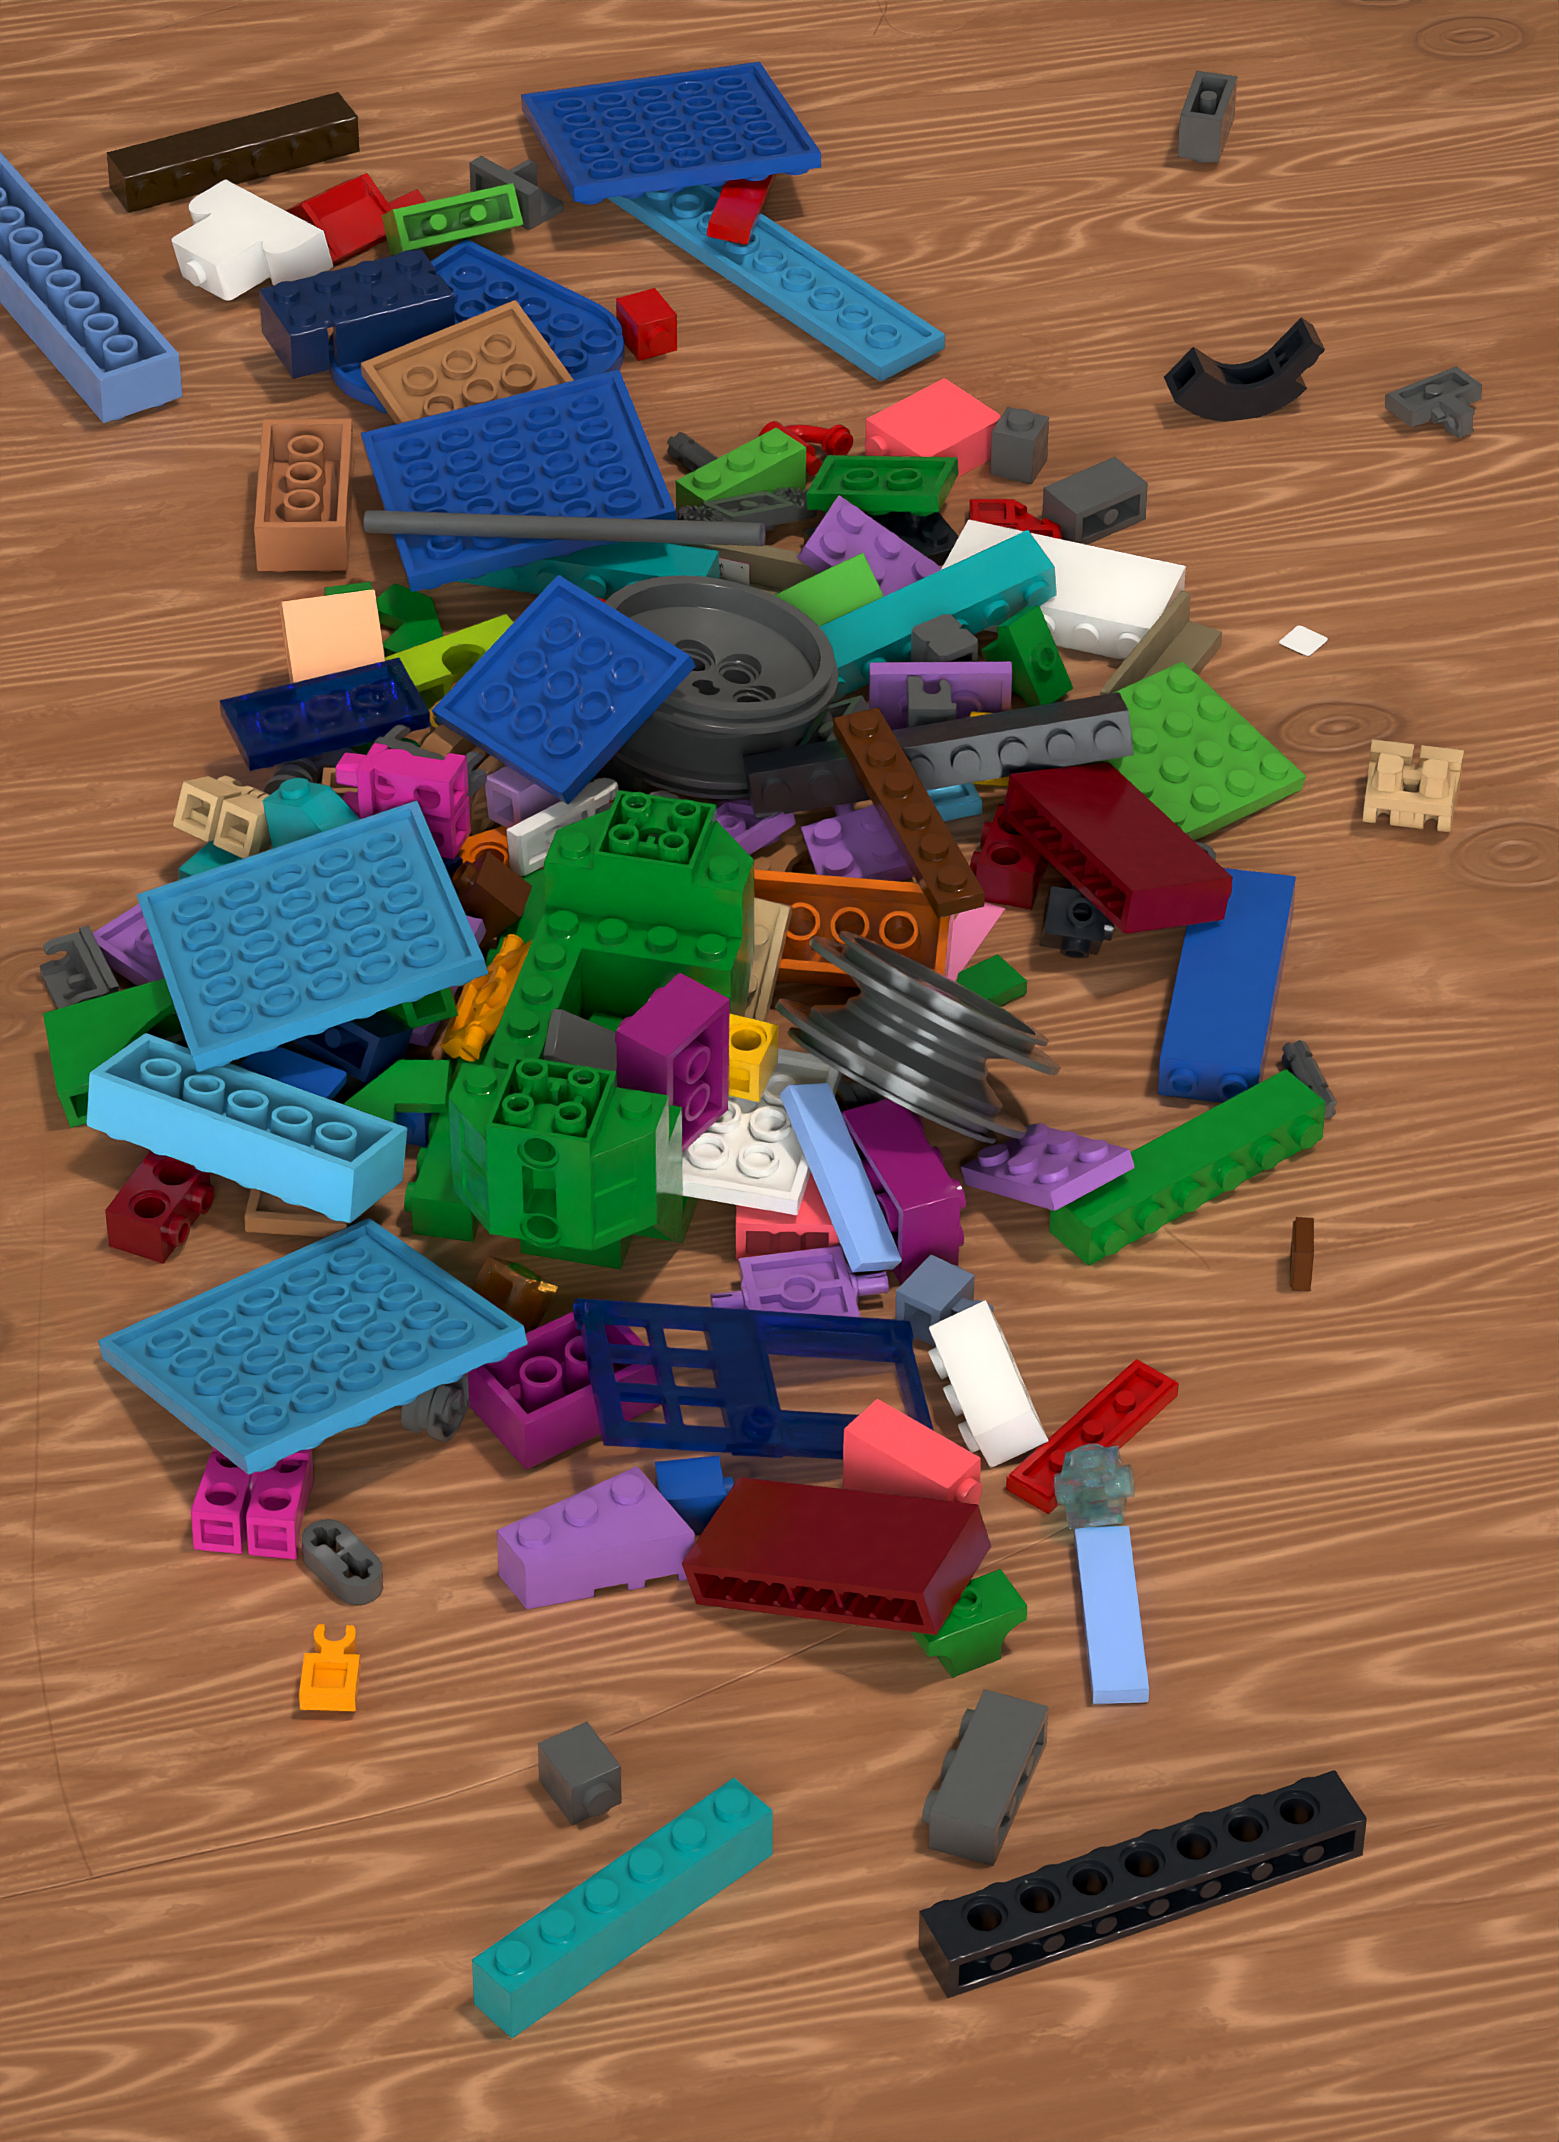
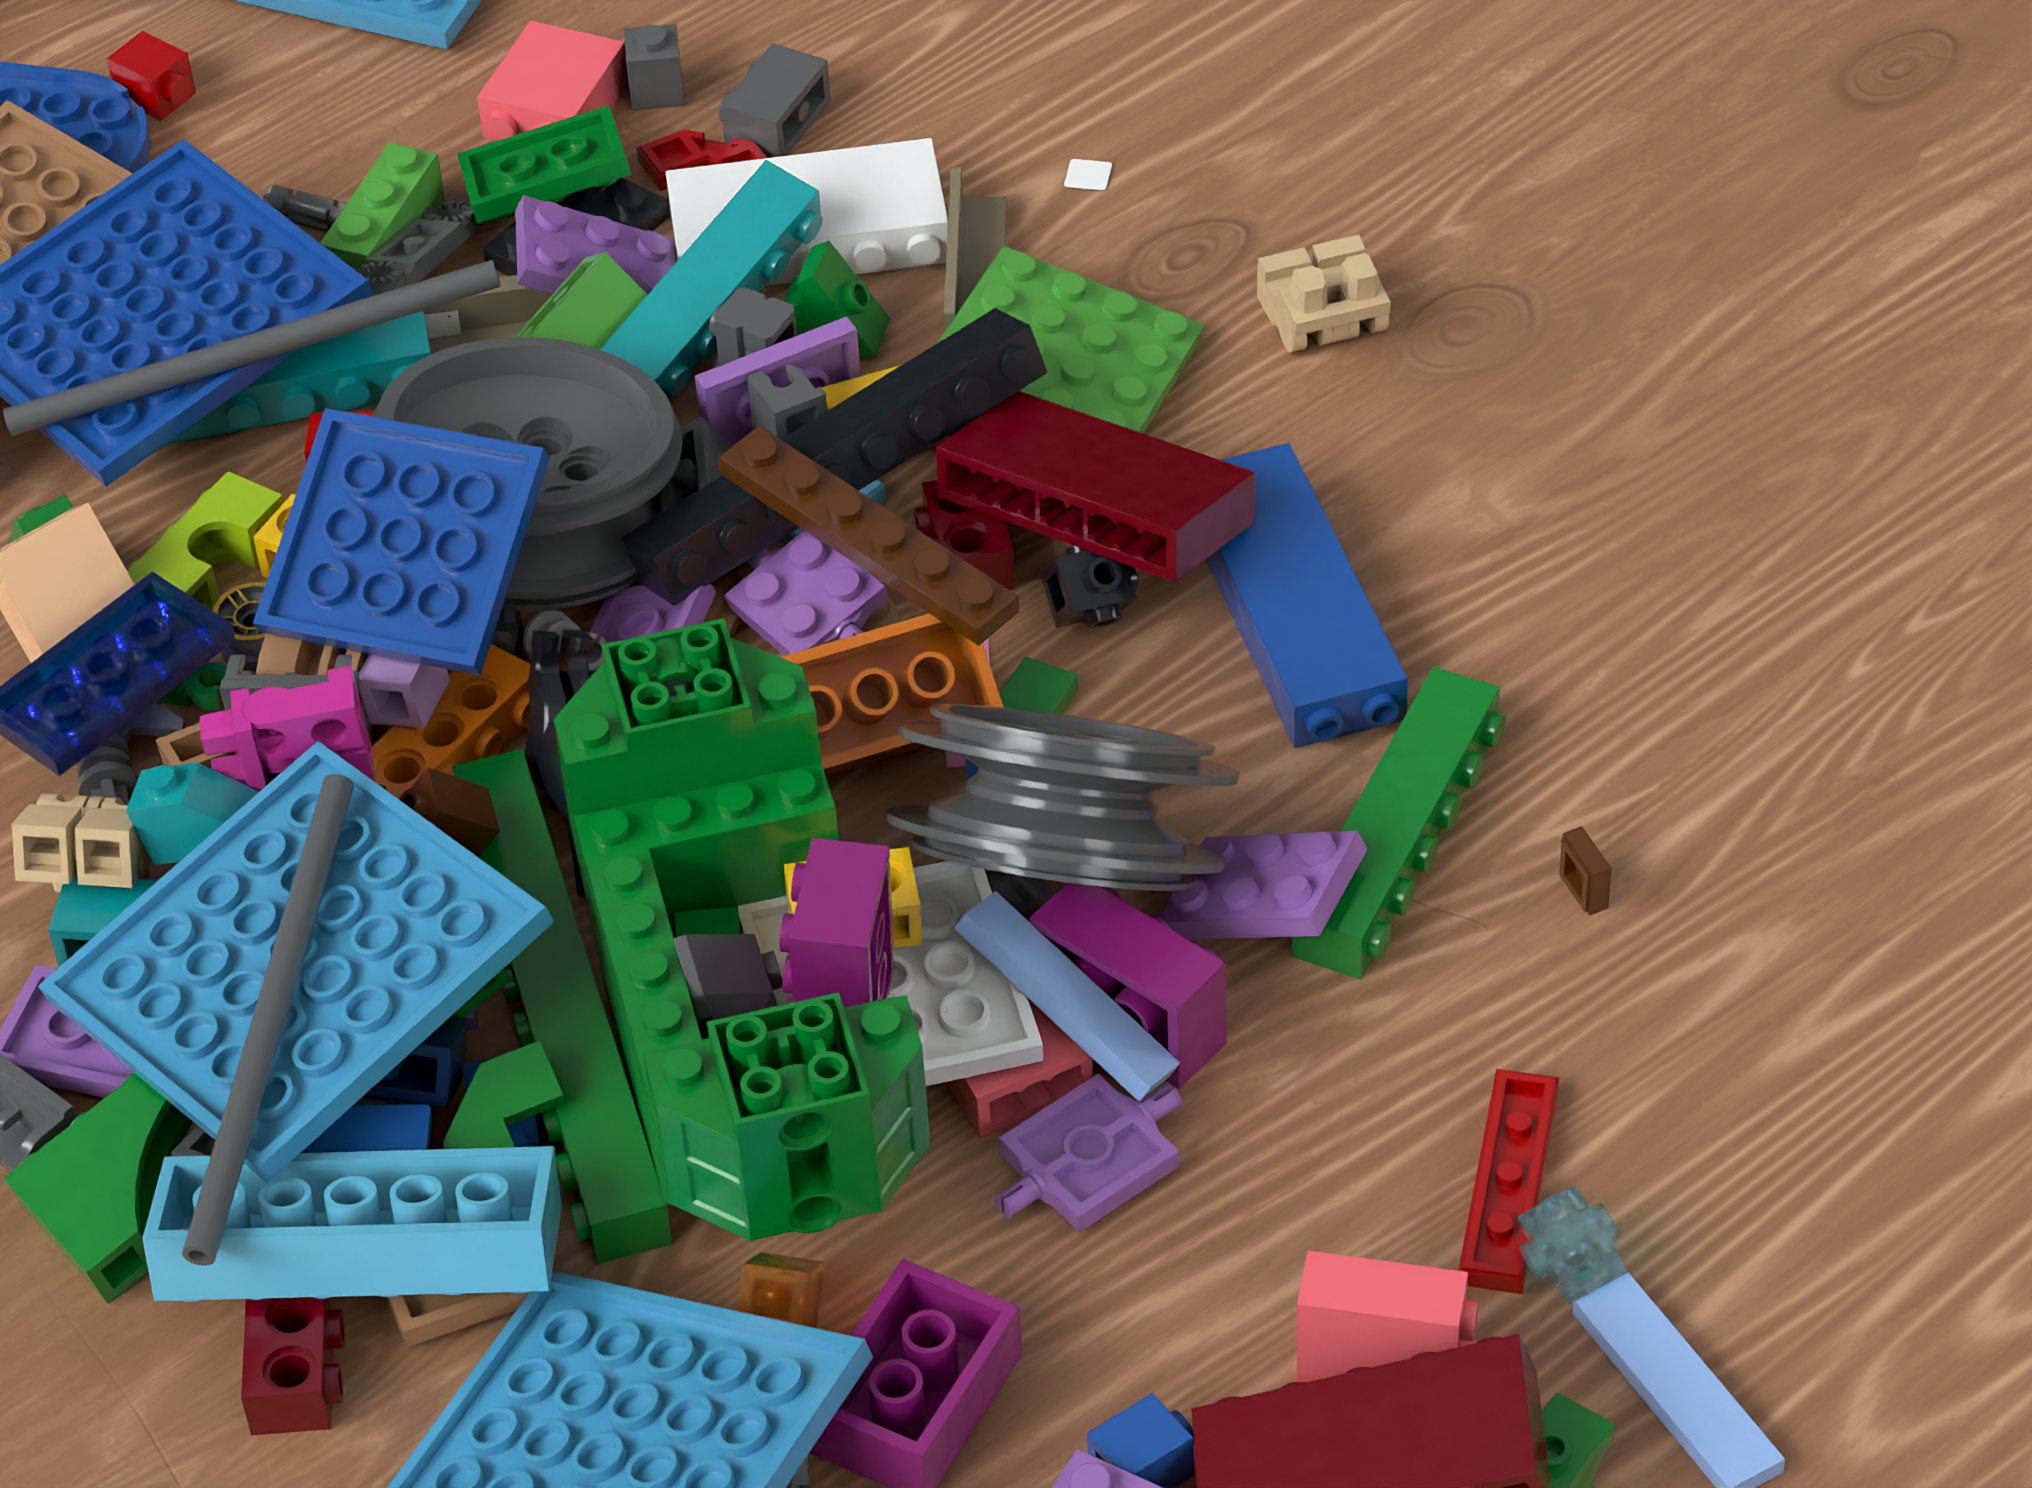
camera: 25 degrees left, 5 degrees up
(259, 963) = (267, 1022): none -> dark grey piece
(410, 615) = (124, 519): green tile -> none
(484, 1002) = (560, 955): light orange plate -> none
(532, 837) = (473, 706): white hinge -> none
(742, 1373) = (1088, 1250): clear blue door -> none
(833, 441) = (447, 135): red plant -> none
(933, 1294) = (1248, 1096): sand blue brick -> none
(985, 1385) = (1371, 1173): white brick -> none
(1301, 1064) = (1415, 647): dark grey axle -> none

